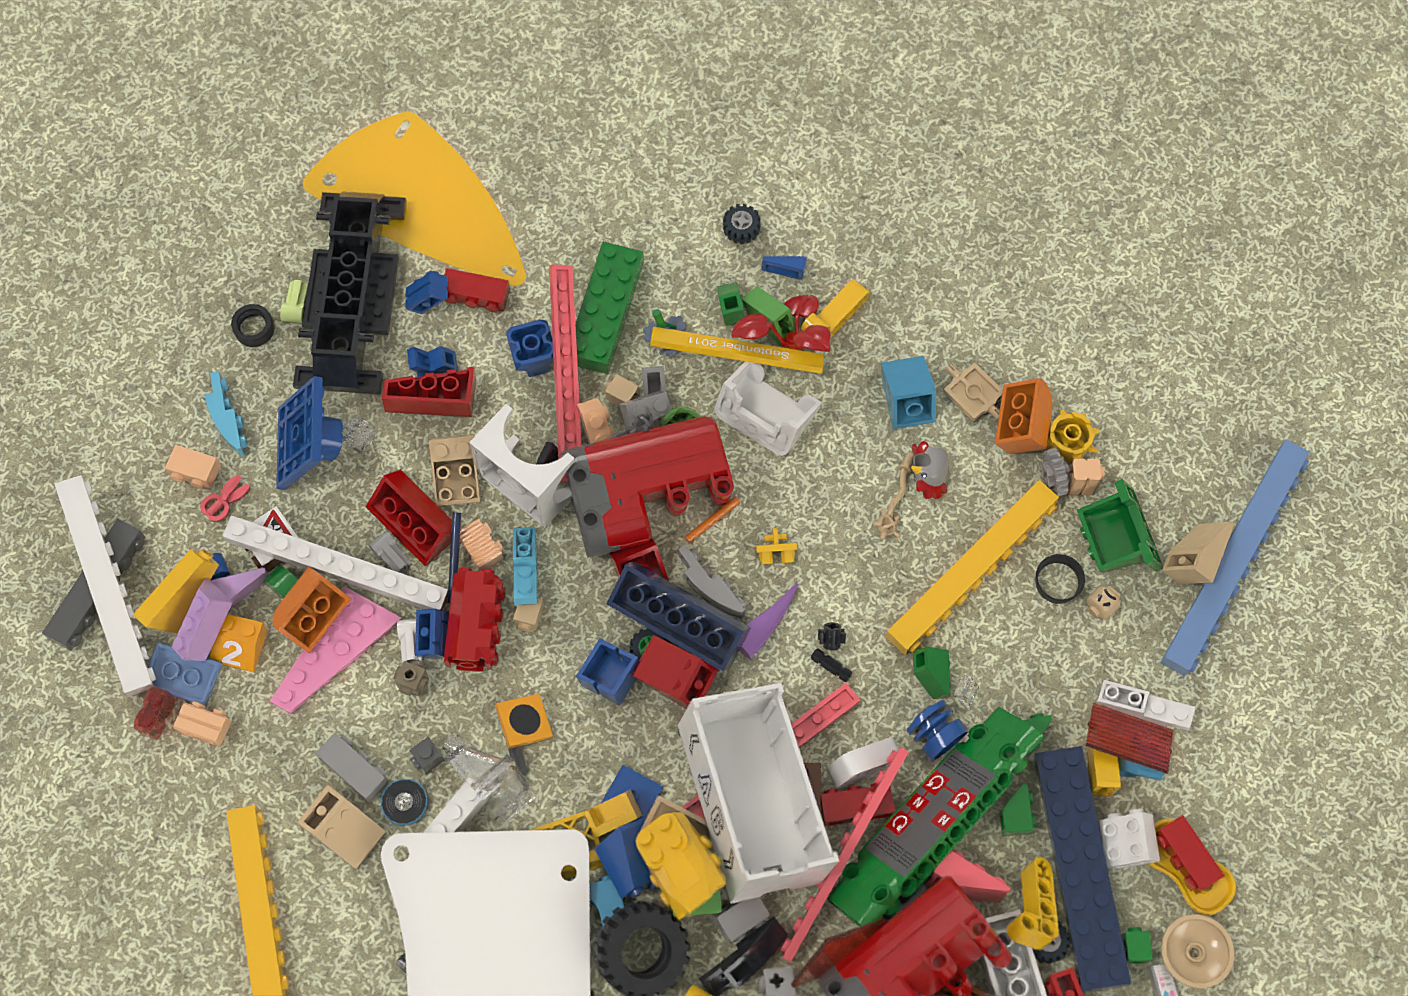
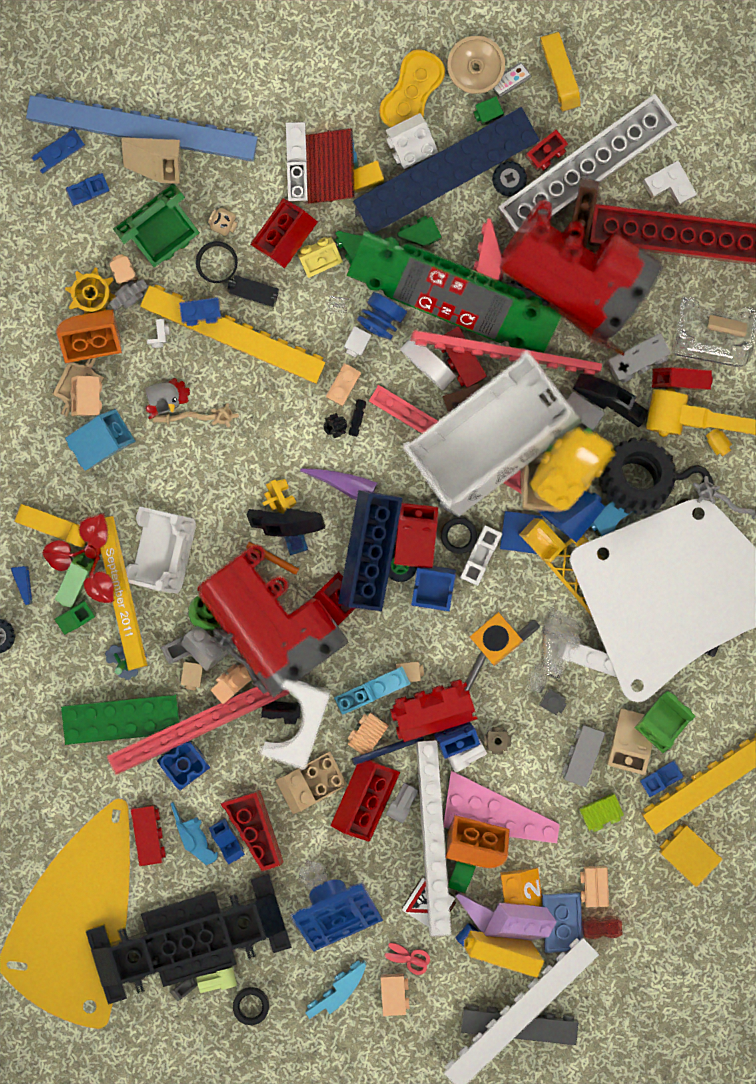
camera: 110 degrees left, 20 degrees up
(184, 842) = (689, 854): none -> yellow slope
(280, 763) = (601, 812): none -> lime brick
(286, 847) = (662, 778): none -> blue slope
(302, 269) = (183, 989): none -> dark grey piece
(347, 873) = (665, 721): none -> bright green panel
(404, 802) = (593, 704): black tile -> none
(426, 292) = (168, 873): blue brick -> none
(451, 331) = (194, 838): none -> dark azure animal
(495, 683) = (475, 670): none -> flat silver bar
(623, 739) = (481, 555): none -> white arch
(646, 710) = (473, 535): none -> black tyre
(715, 590) = (333, 532): light grey slope -> none
(719, 547) = (296, 544): none -> clear blue brick
(743, 542) = (291, 523): none -> black slope
(874, 662) = (343, 385): none -> light nougat brick
(916, 695) = (357, 342): none -> white brick
(933, 671) = (333, 336): green slope -> none
(960, 388) = (85, 396): none -> light nougat brick
(1001, 494) = (162, 332): none -> white bracket
(1013, 534) = (200, 310): none -> blue brick
(1013, 605) = (253, 291): none -> black brick
(1028, 690) = (319, 256): none -> light yellow bracket
(1039, 921) = (504, 187): yellow beam -> none
(1067, 662) = (284, 233): none -> red slope
(1184, 477) = (87, 190): none -> blue slope
(1189, 855) = (406, 93): red brick -> none
(1237, 465) = (59, 150): none -> blue hinge

